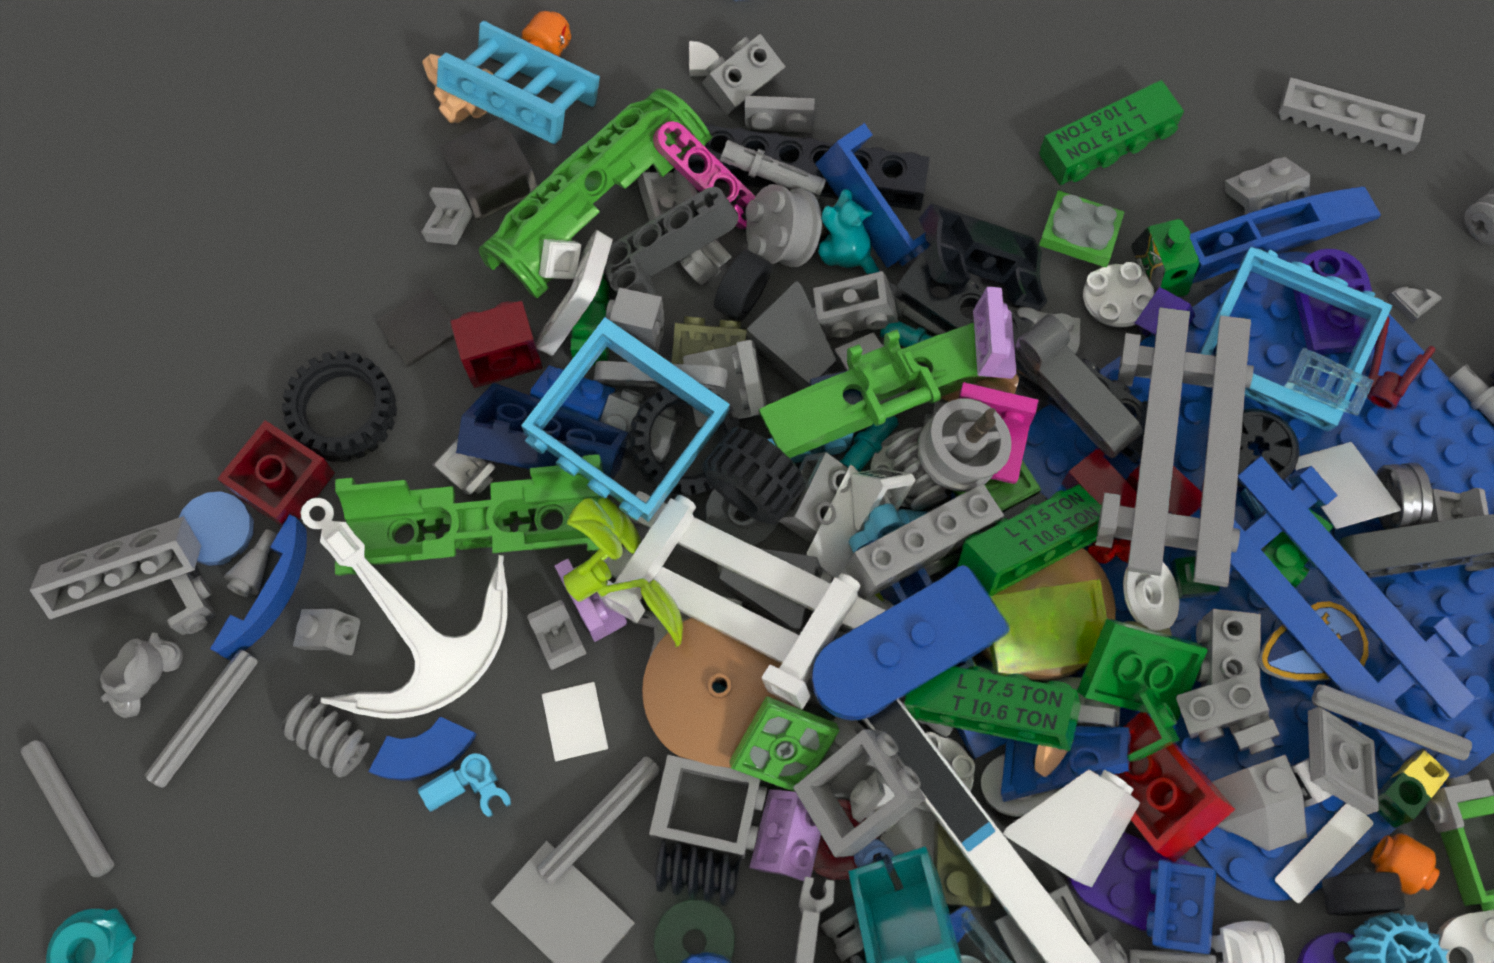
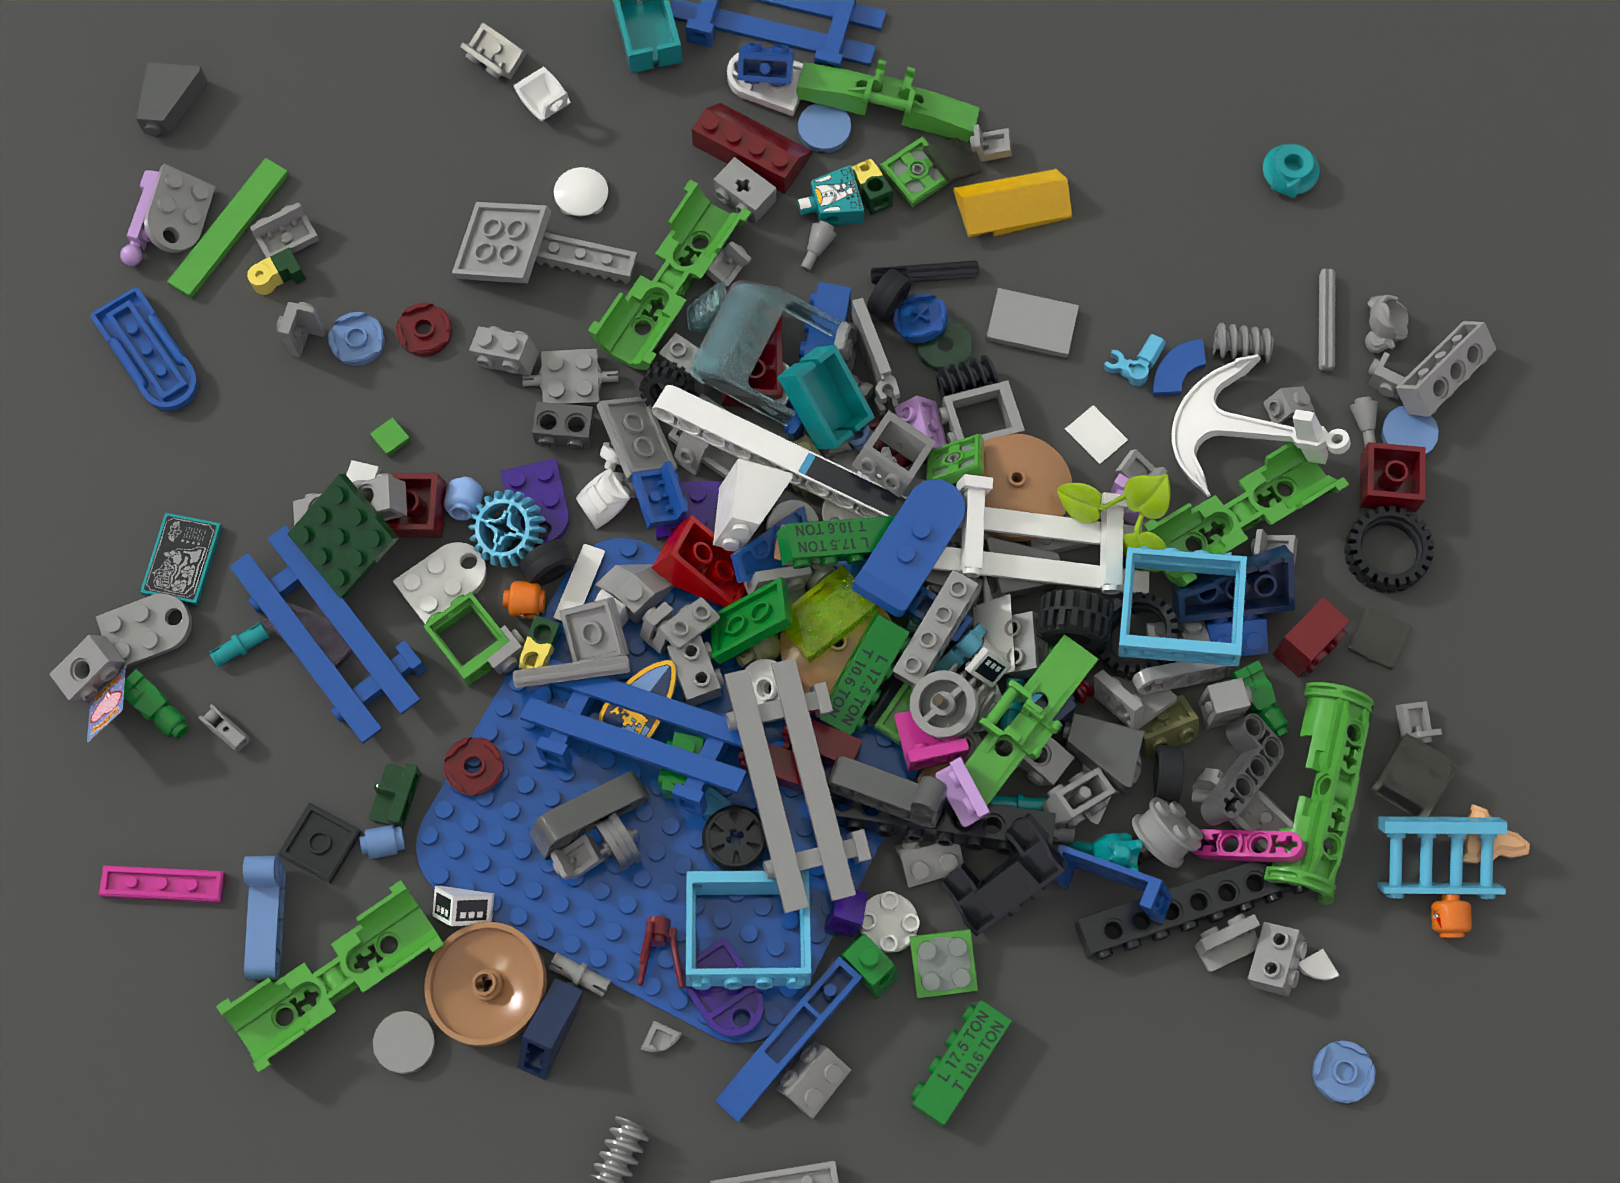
camera: 150 degrees right, 0 degrees up
(67, 809) = (1367, 233): light grey axle -> none
(274, 596) = (1338, 411): blue slope -> none
(559, 259) = (1308, 714): white tile -> none
(579, 296) = (1275, 687): white beam -> none
(598, 820) = (1043, 380): light grey axle -> none
(766, 167) = (1236, 865): light grey pin -> none
(1164, 721) = (725, 588): green bracket -> none
(1334, 369) = (717, 882): clear light blue slope -> none
(1358, 488) = (663, 833): white sticker -> none

